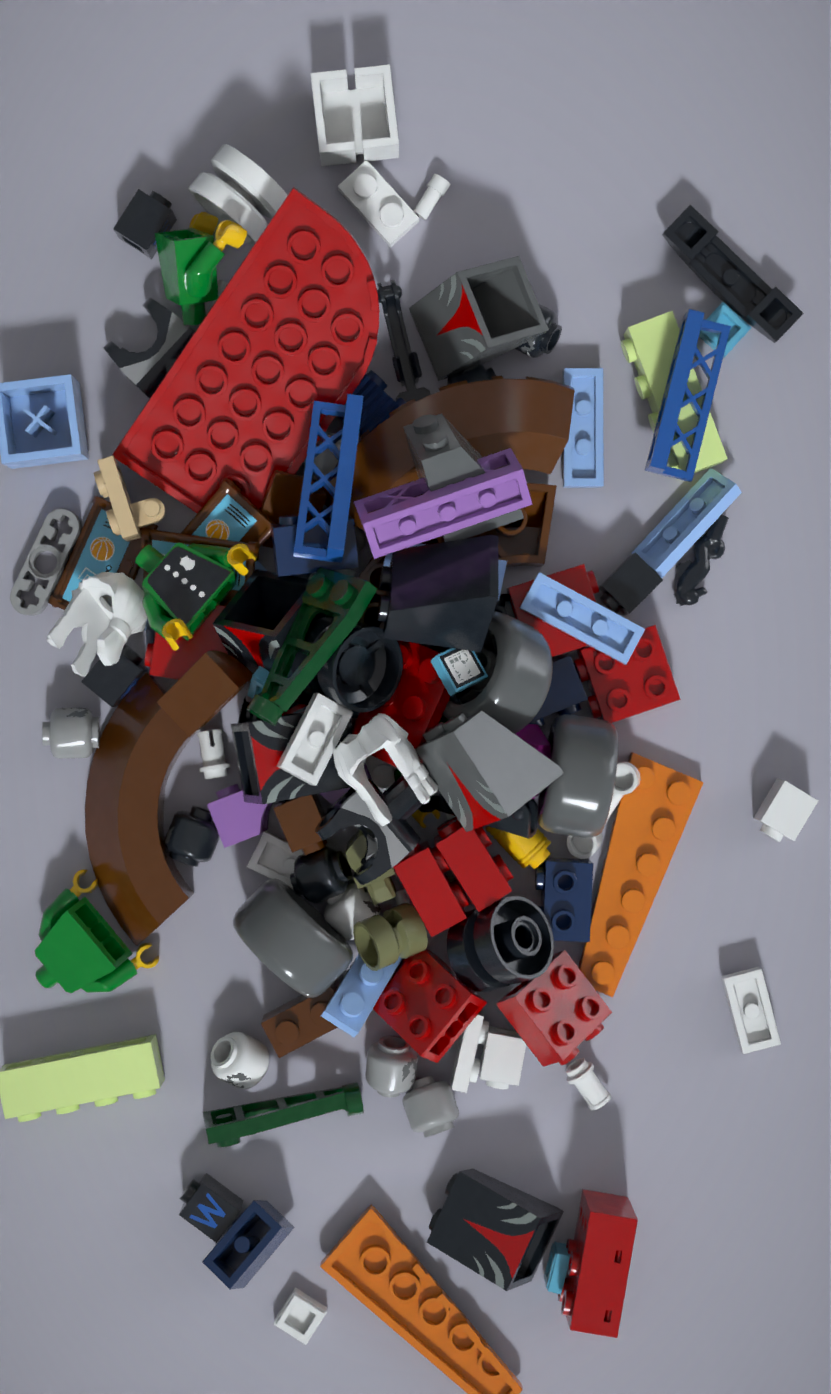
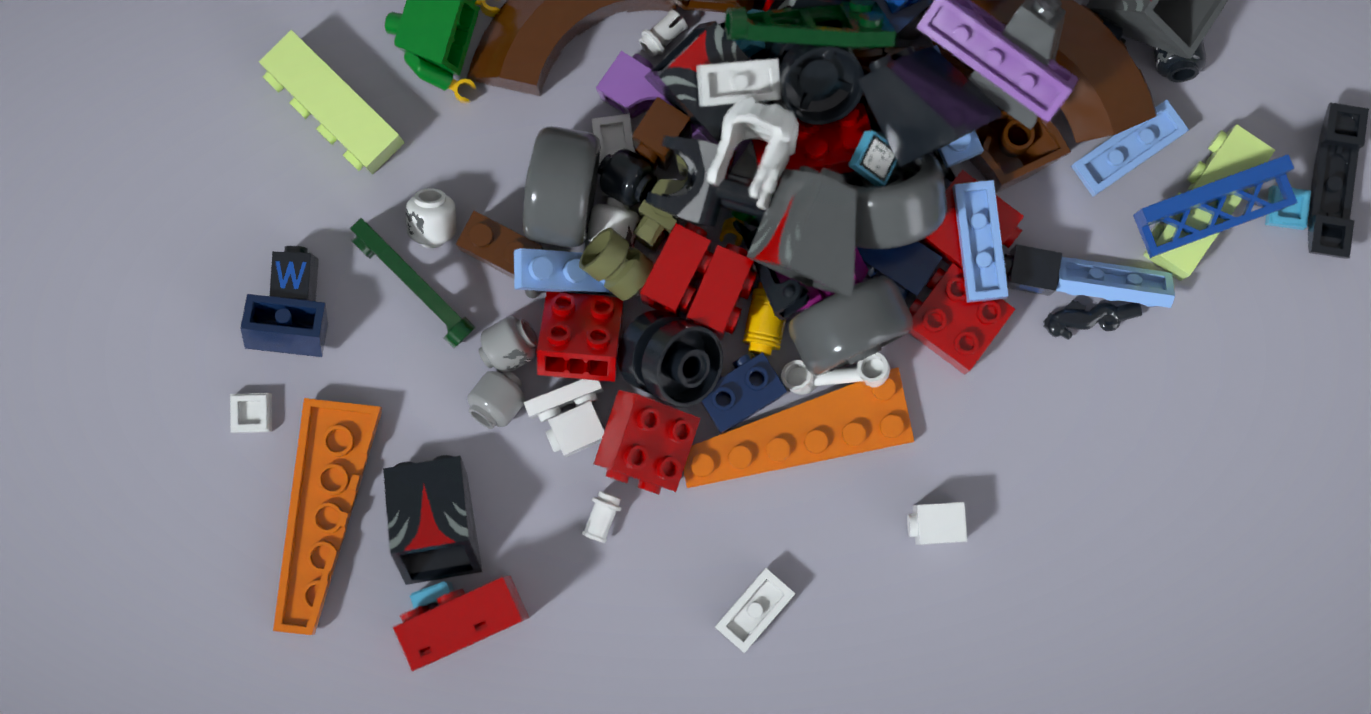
camera: 60 degrees right, 5 degrees down
(192, 836) = (586, 59): black head -> none

